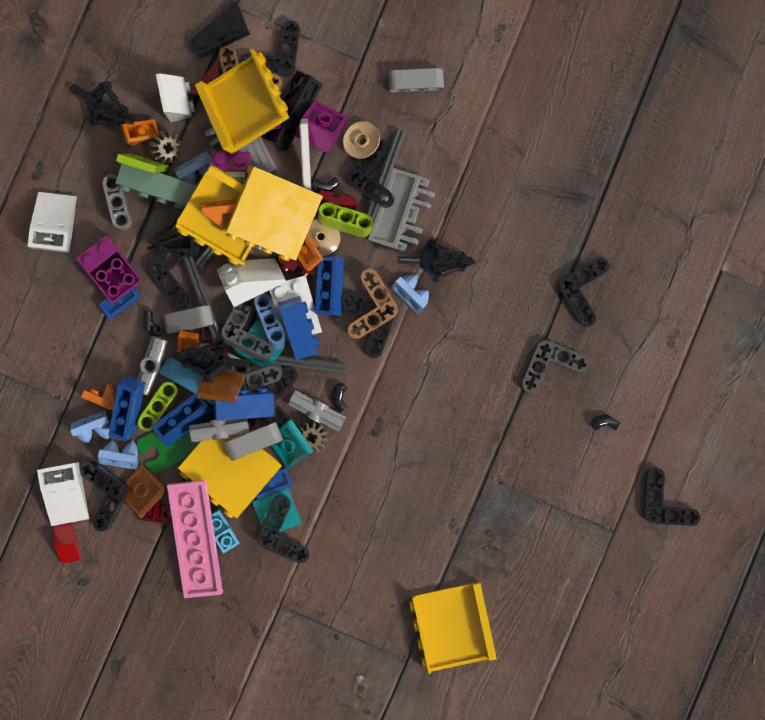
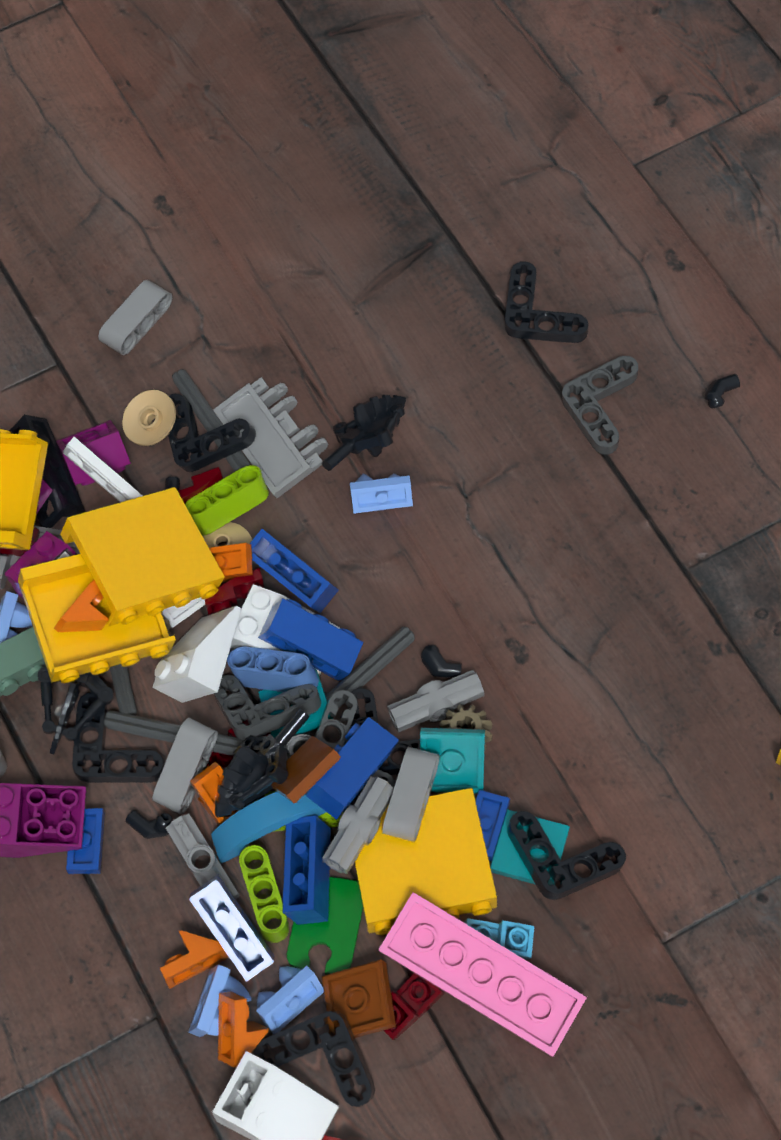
camera: 45 degrees left, 25 degrees down
(85, 448) = (234, 1031): none -> orange slope
(380, 303) = (366, 531): medium nougat beam -> none
(387, 325) = (380, 550): black beam -> none

